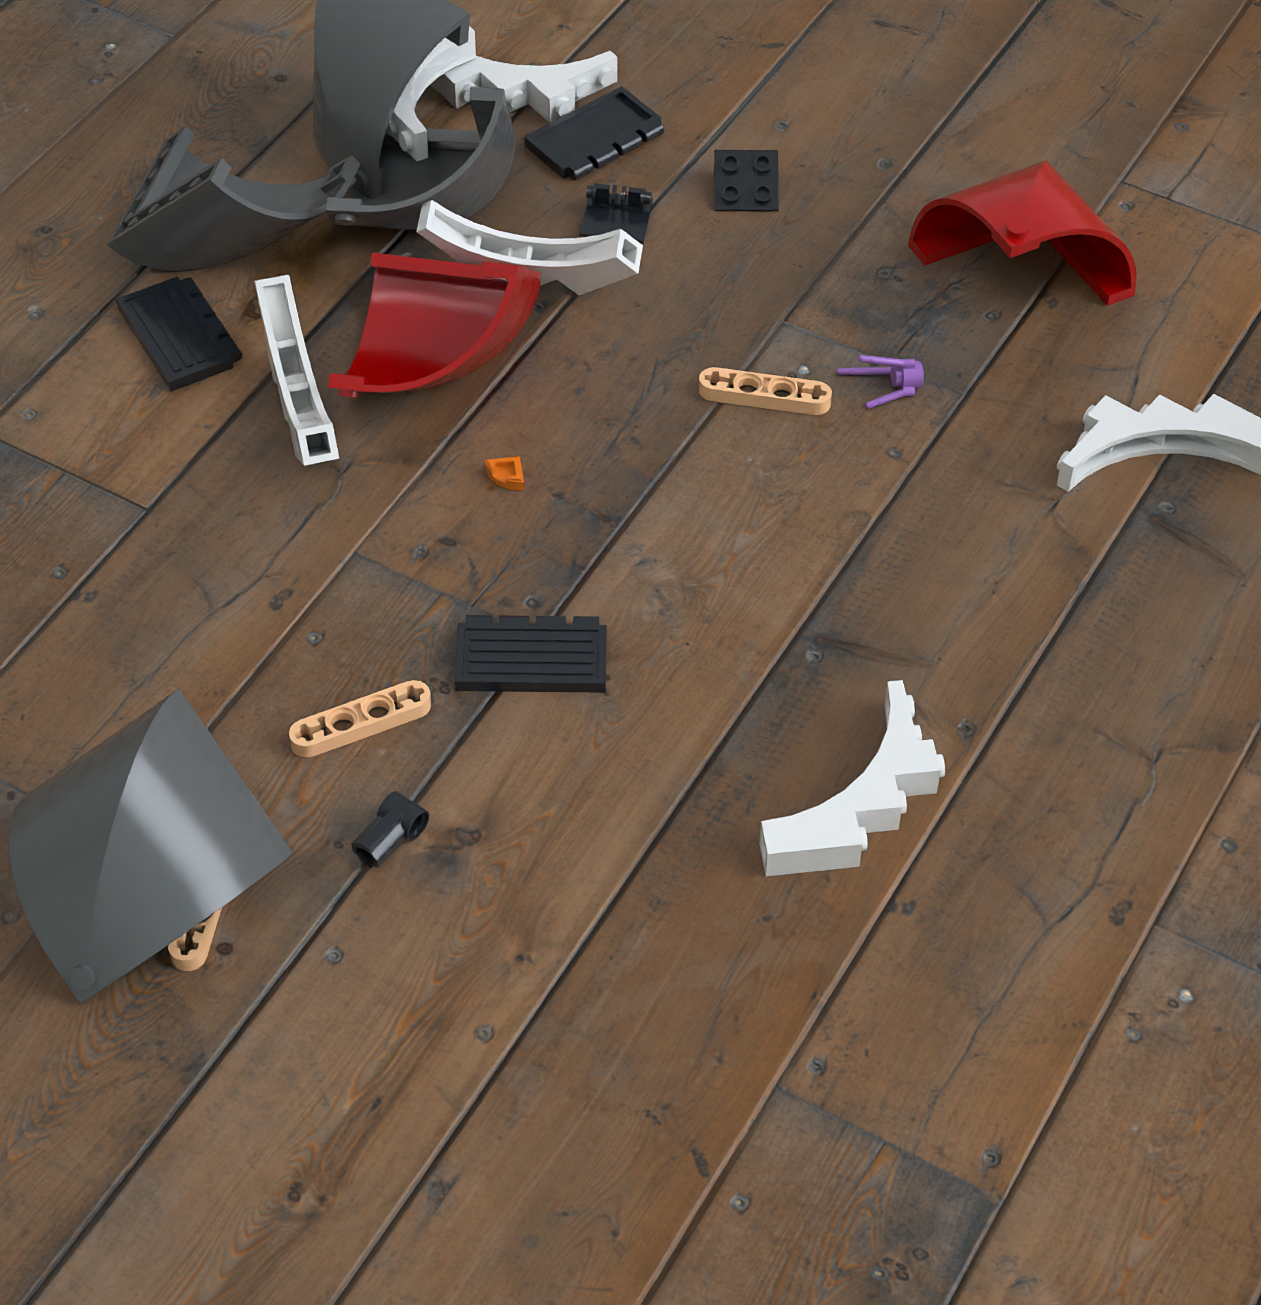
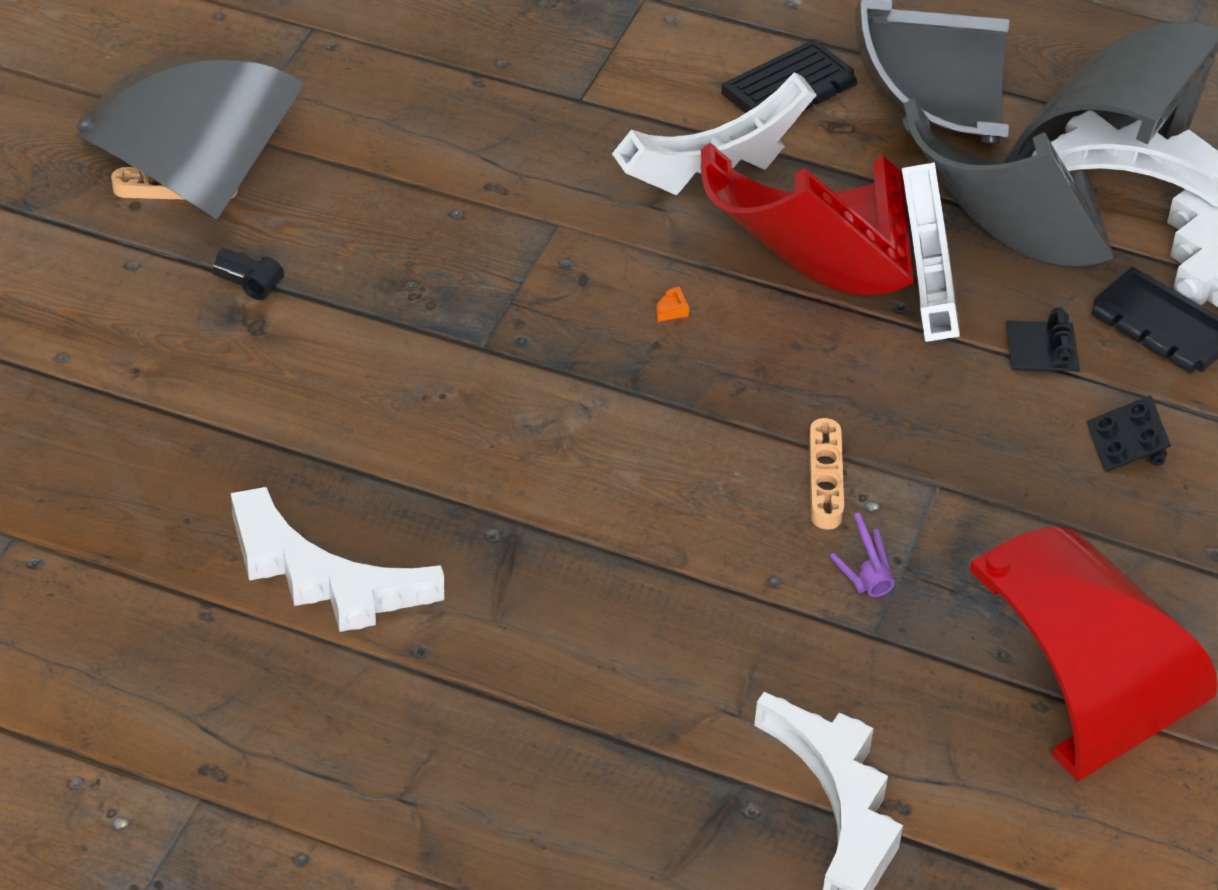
camera: 80 degrees right, 5 degrees down
(363, 723) = (373, 243): light nougat beam -> none
(531, 656) = (458, 342): black hinge -> none

